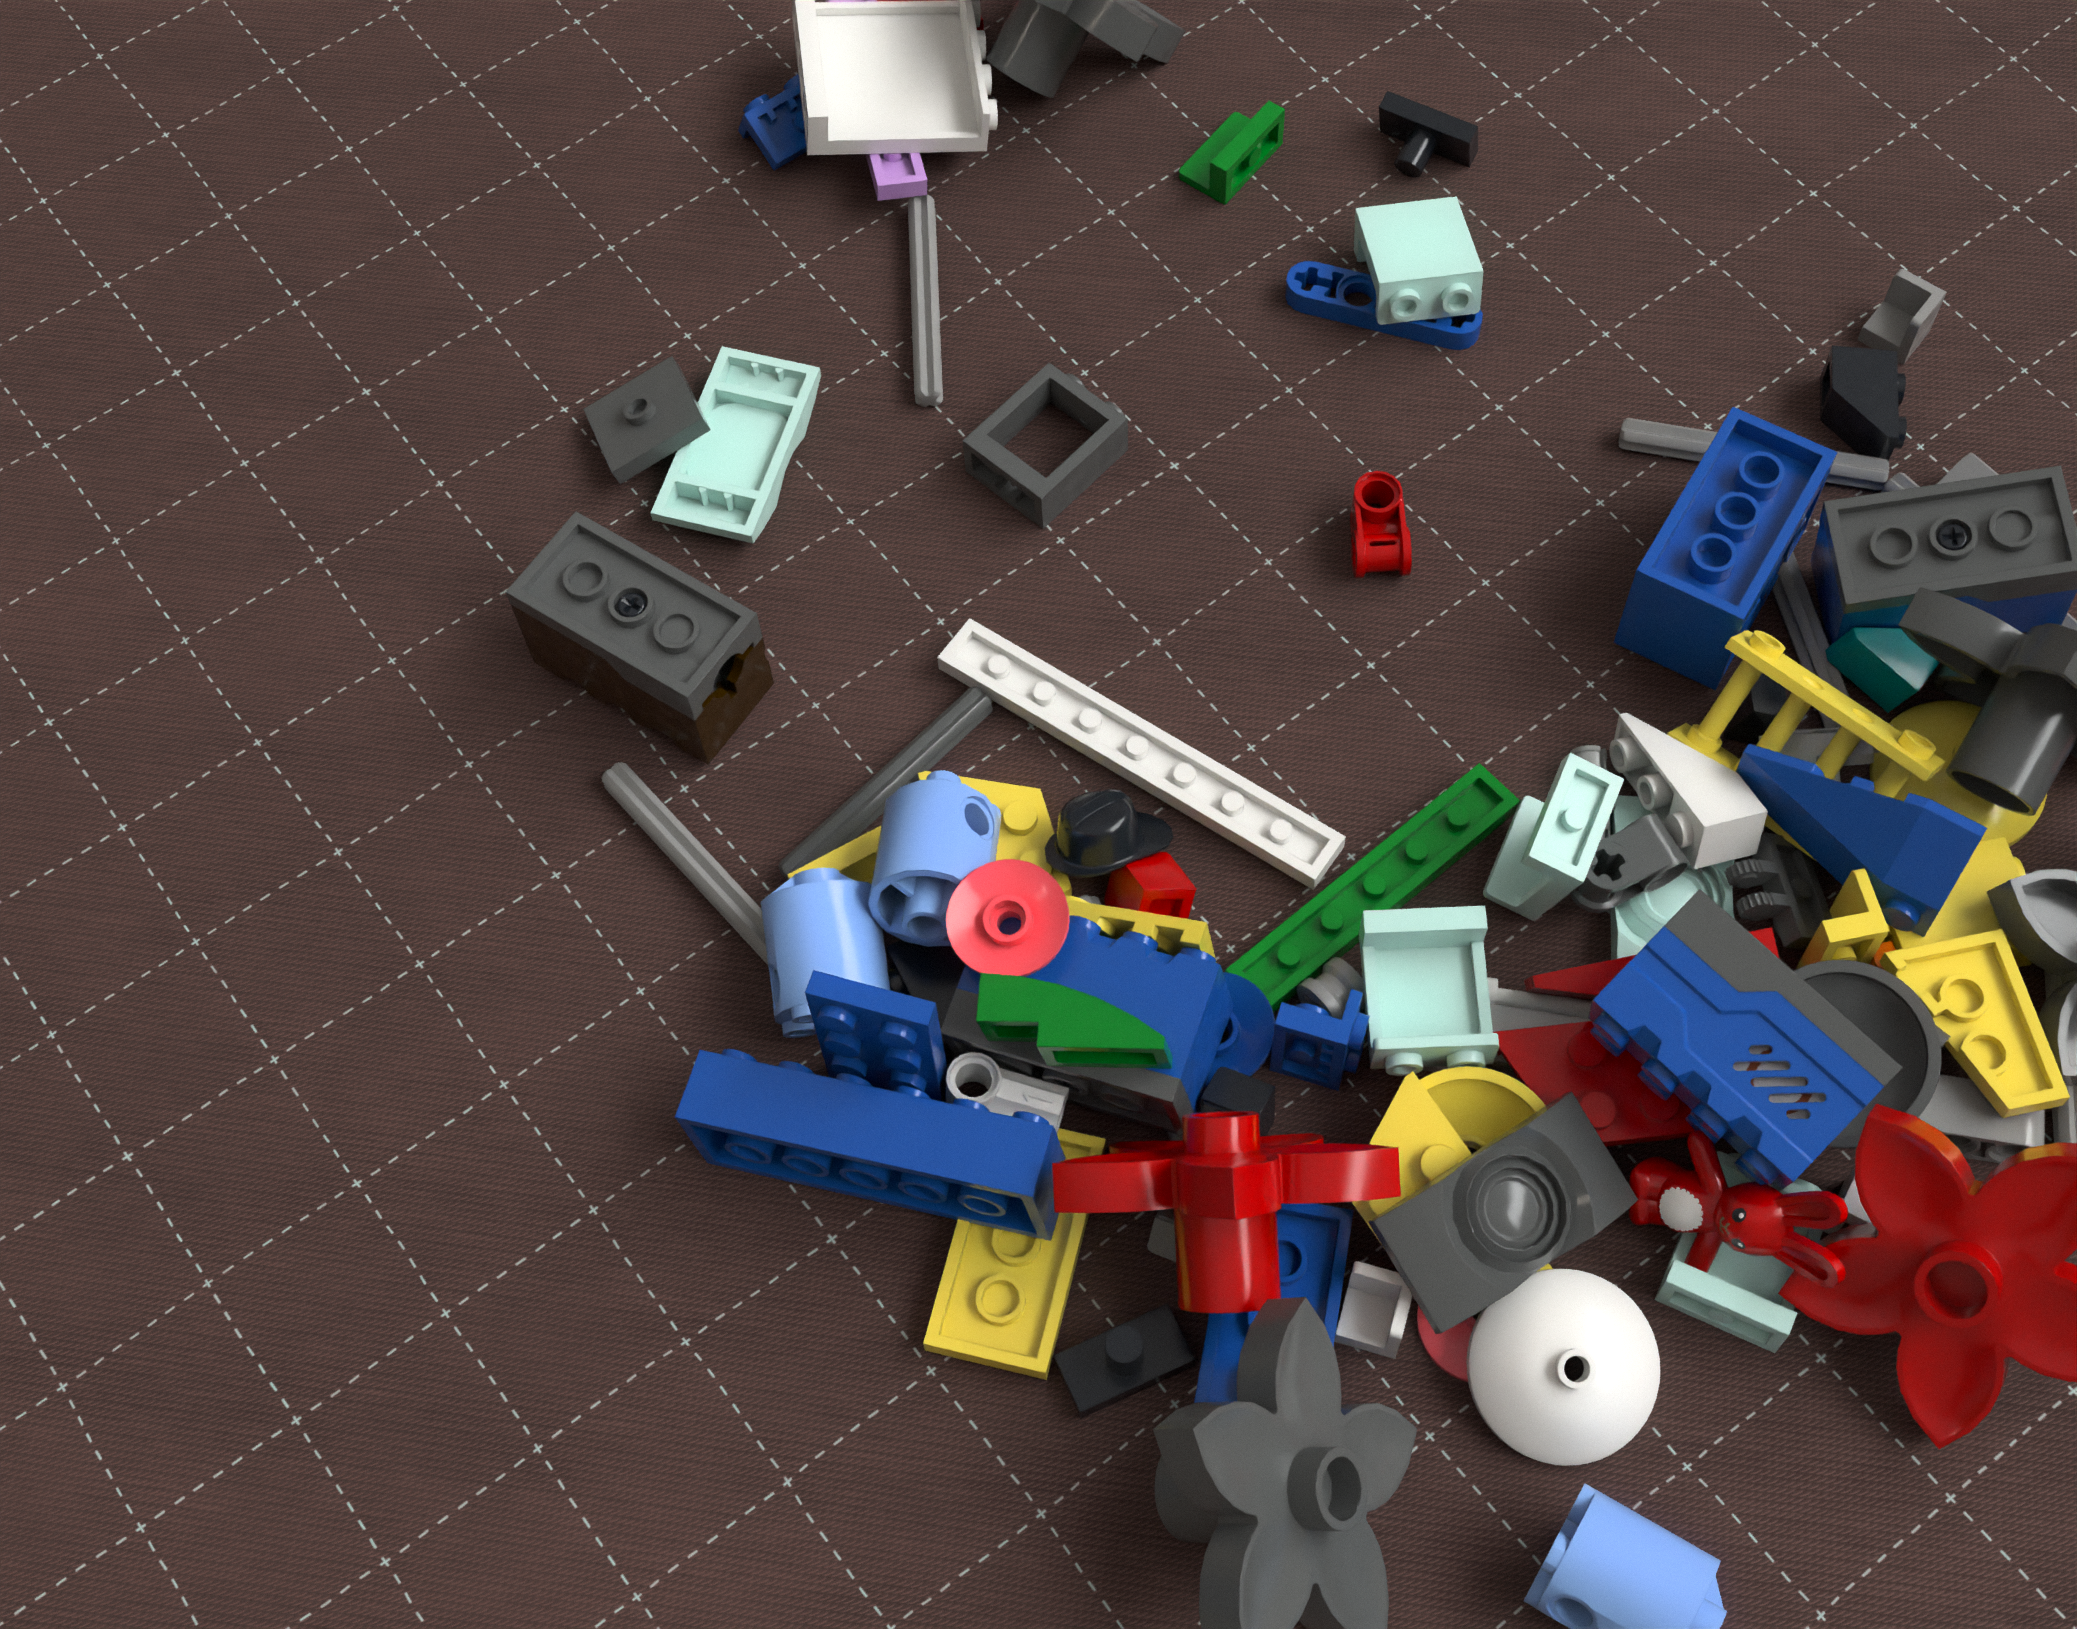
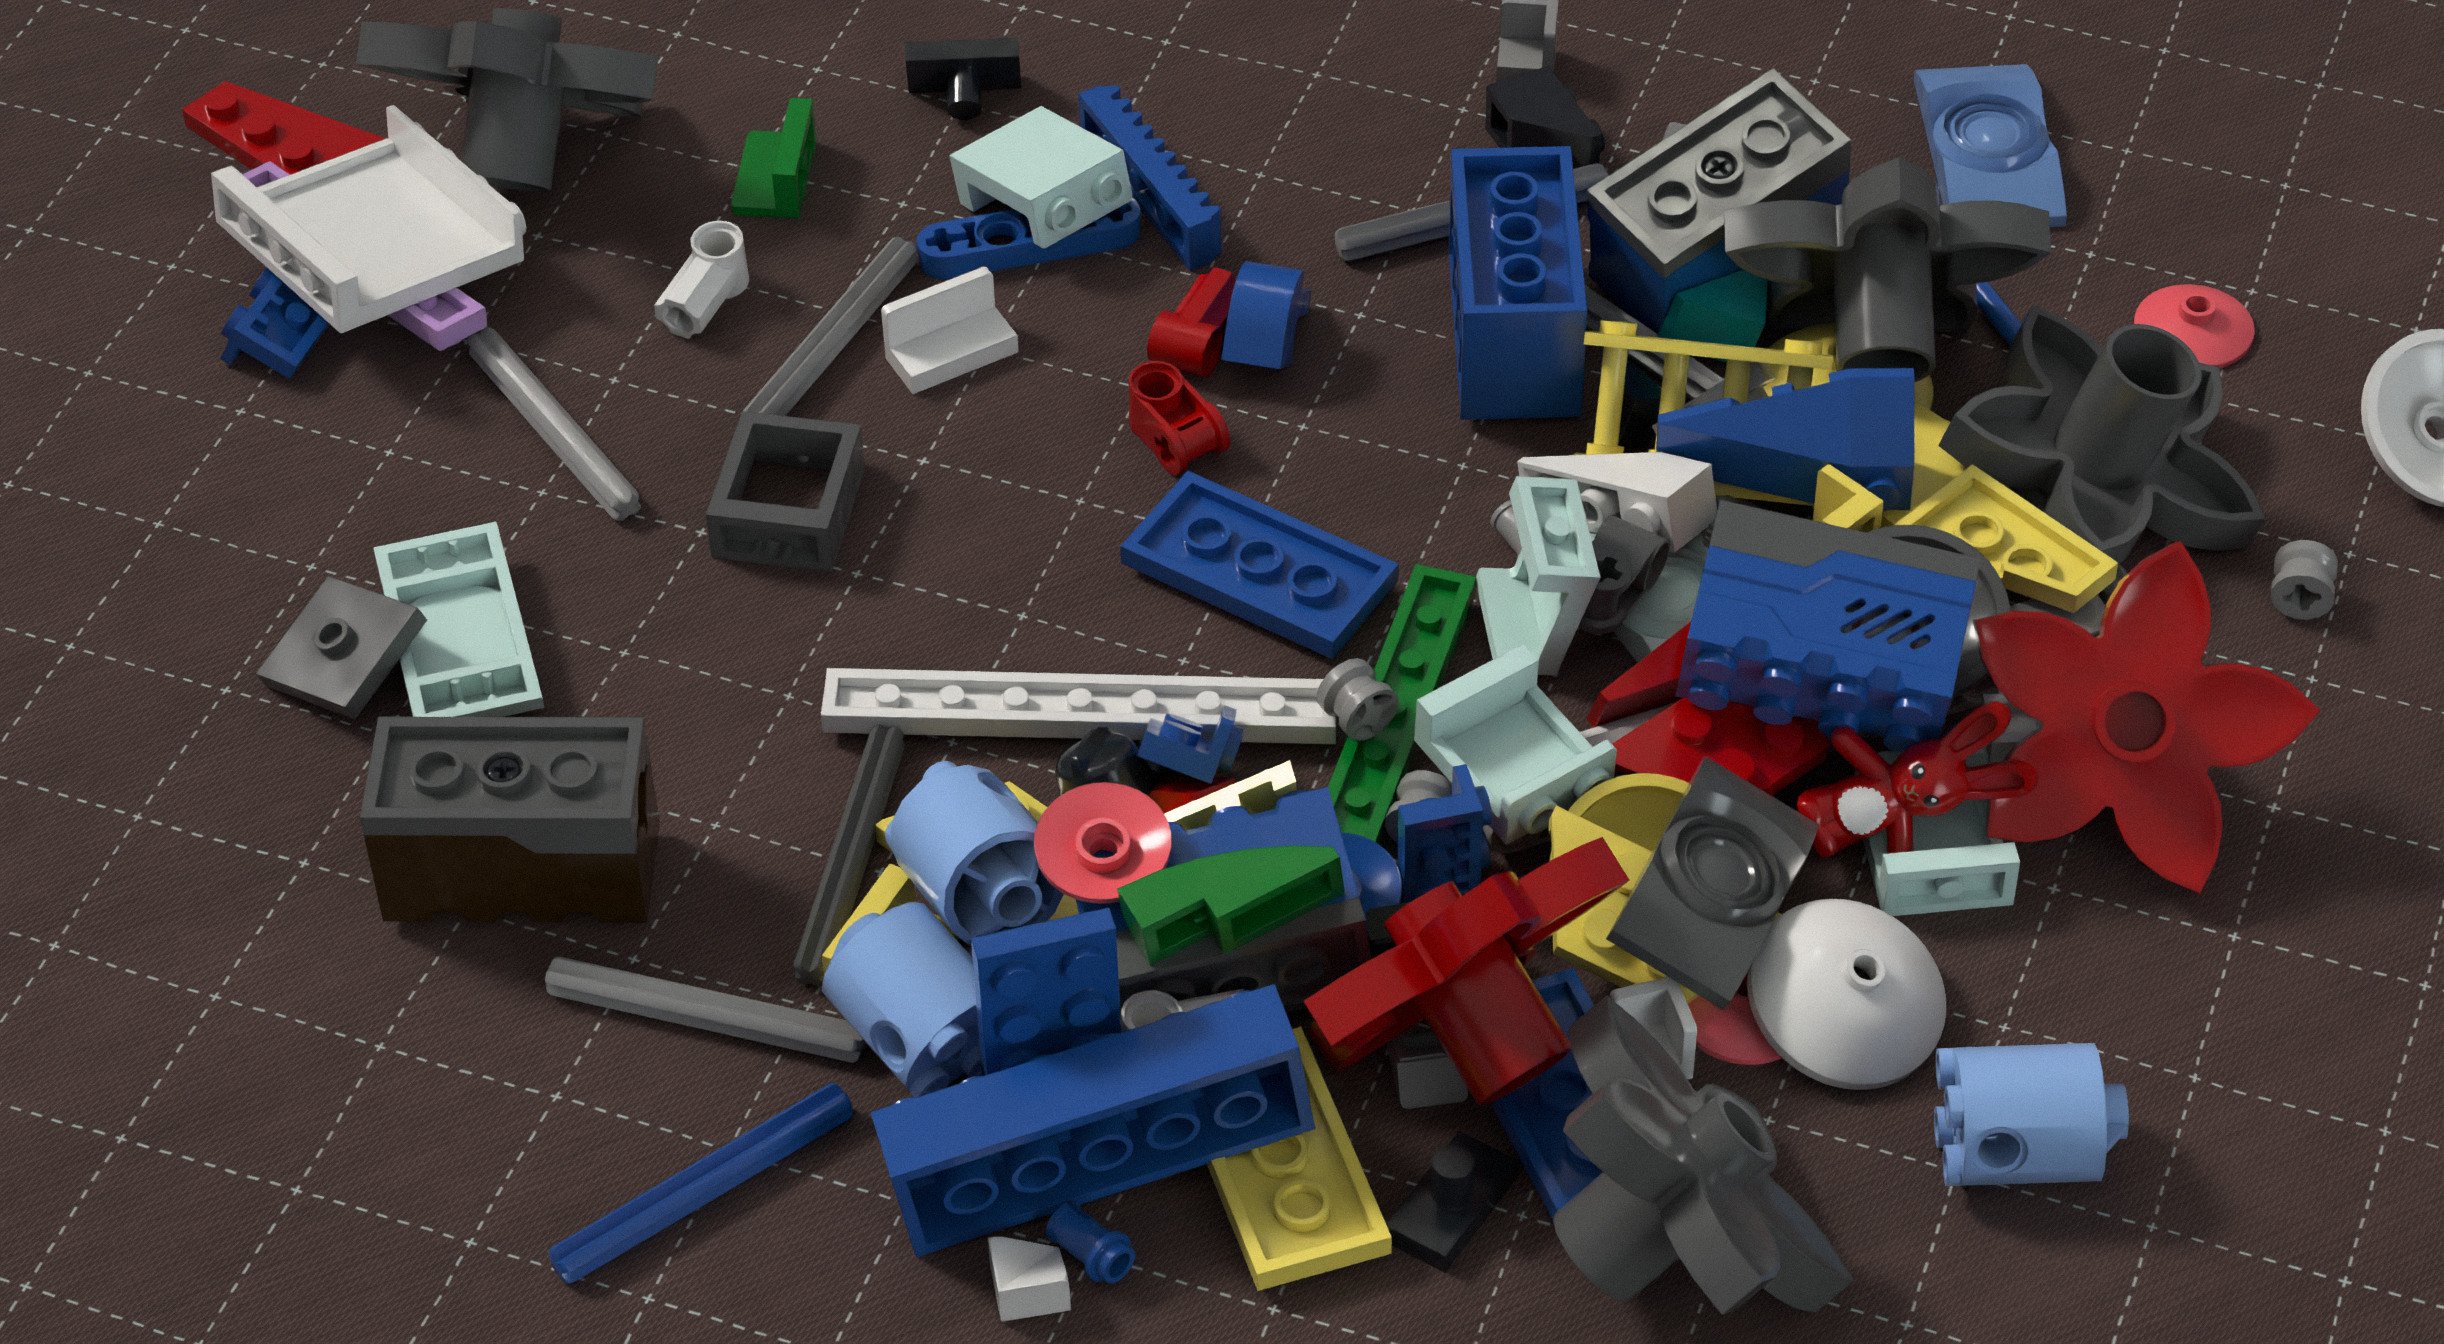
camera: 35 degrees left, 15 degrees down
(596, 1011) = (700, 1183): none -> blue axle
(763, 1235) = (1027, 1278): none -> white slope
(829, 1249) = (1103, 1252): none -> blue pin
(1120, 225) = (706, 279): none -> white piece
(1175, 321) = (835, 329): none -> light grey axle
(1176, 843) = (1180, 747): none -> blue bracket
(1259, 362) = (946, 331): none -> white panel
(1338, 870) = (1357, 699): none -> light grey wheel
(1360, 696) = (1260, 564): none -> blue plate
(1445, 459) = (1196, 330): none -> red piece
(1508, 472) = (1265, 315): none -> blue brick
(1509, 297) = (1155, 180): none -> blue gear

